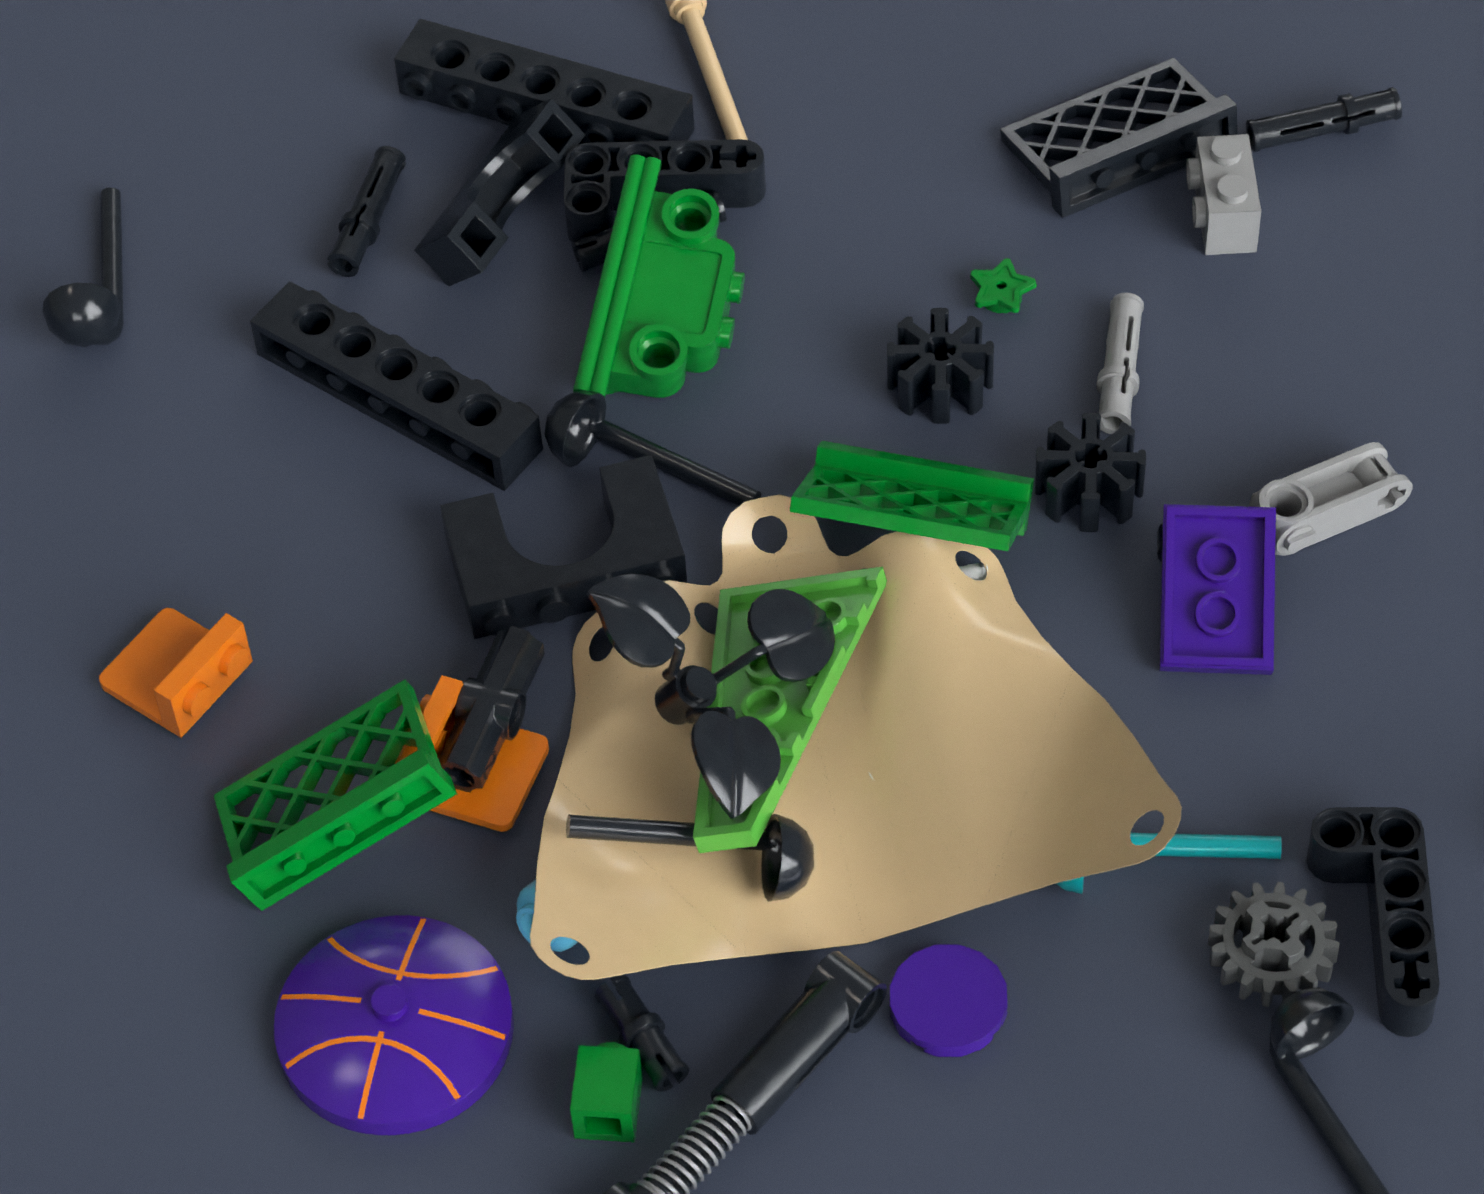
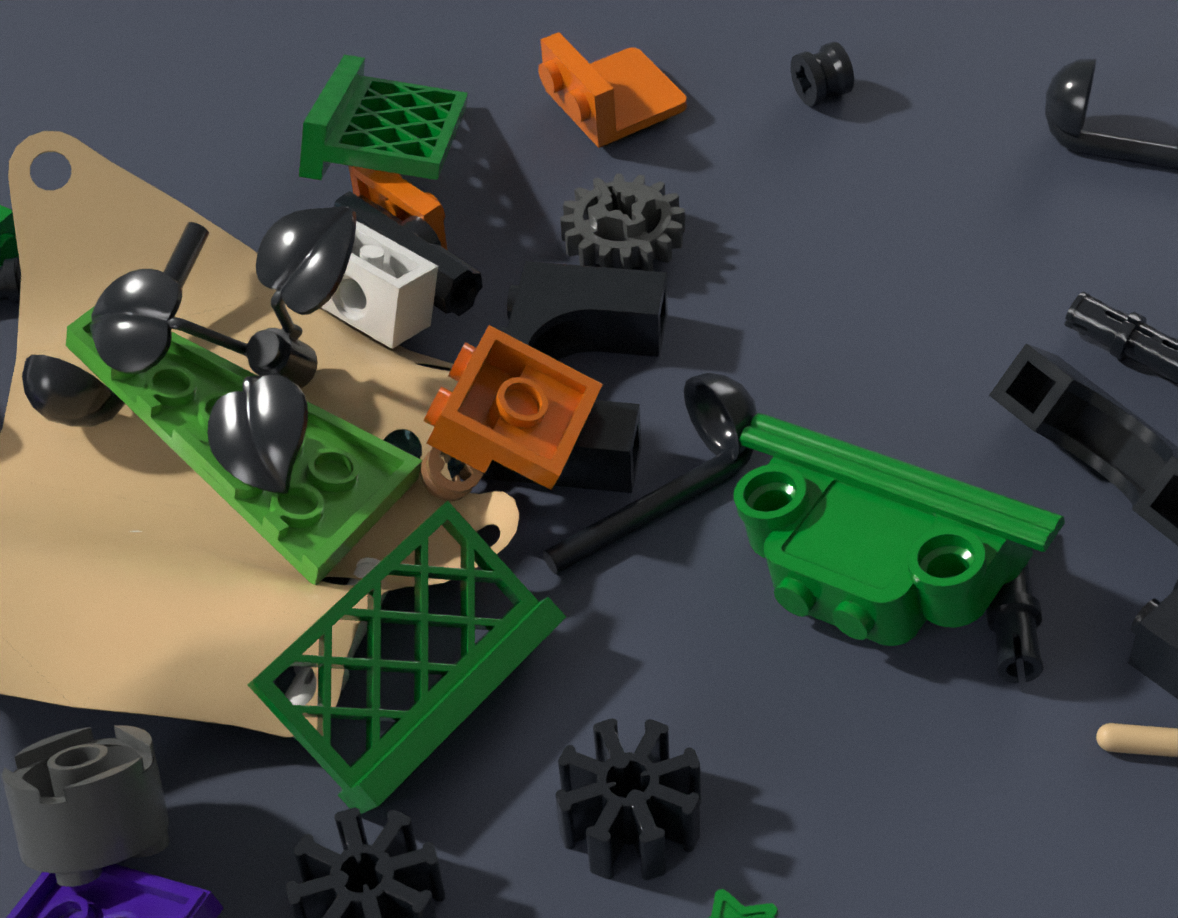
camera: 115 degrees right, 5 degrees down
(95, 514) = (822, 73): none -> black wheel
(368, 585) = (623, 224): none -> dark grey gear
(394, 1025) = (181, 133): dark purple dish -> none
(398, 385) = (874, 303): black brick -> none
(552, 696) = (385, 289): none -> white brick
(598, 172) = (1109, 560): black beam -> none
(667, 515) = (511, 408): none -> orange plate
(718, 567) = (442, 487): none -> medium nougat bush
(1136, 623) = (87, 802): none -> dark grey brick

